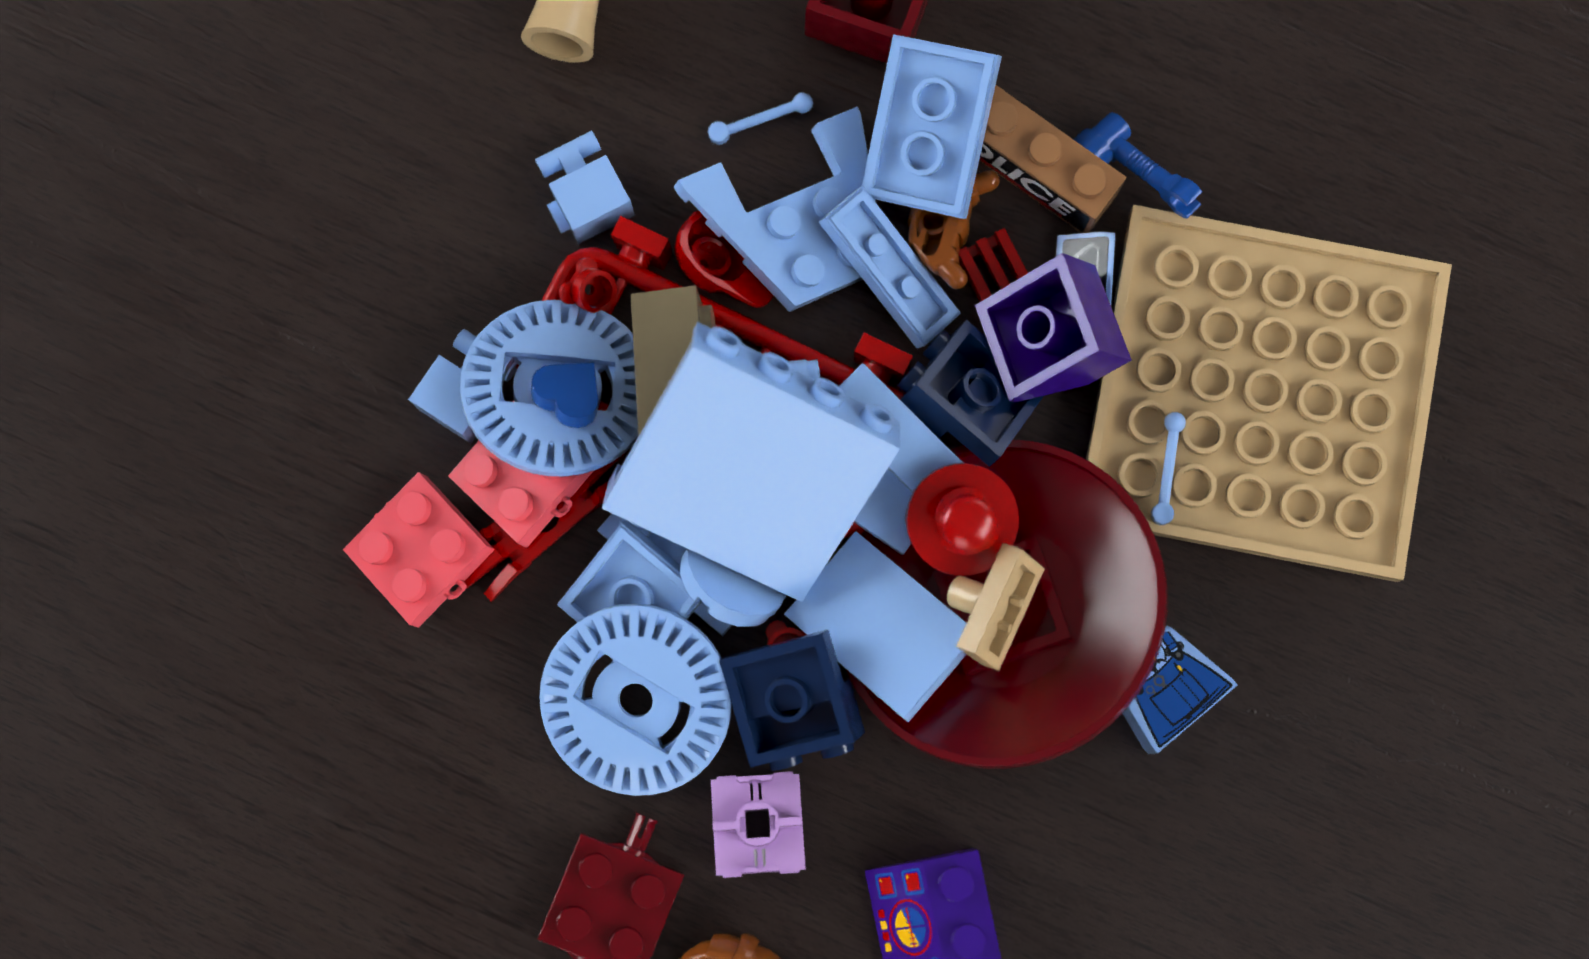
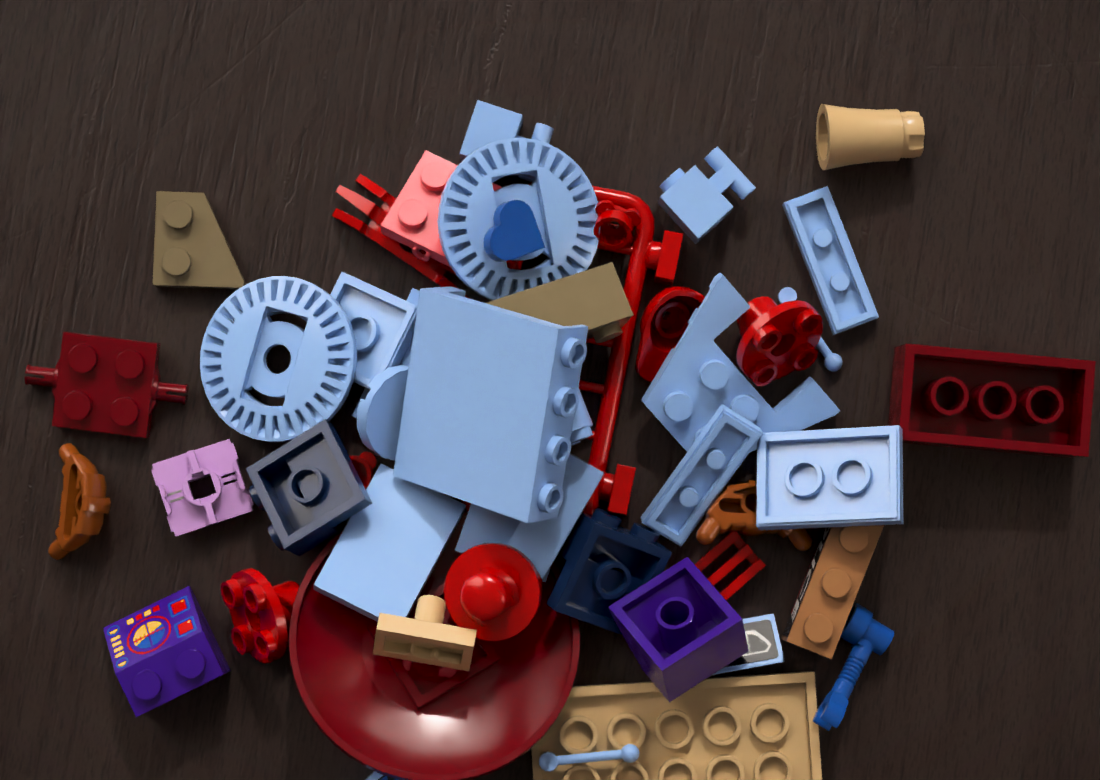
camera: 70 degrees right, 5 degrees up
(418, 550) = (356, 144): coral plate -> none
(479, 767) = (190, 245): none -> dark tan wing
(692, 77) = (830, 260): none -> light blue tile
(762, 147) = (777, 338): none -> red plate
(919, 793) = (259, 613): none -> red plate

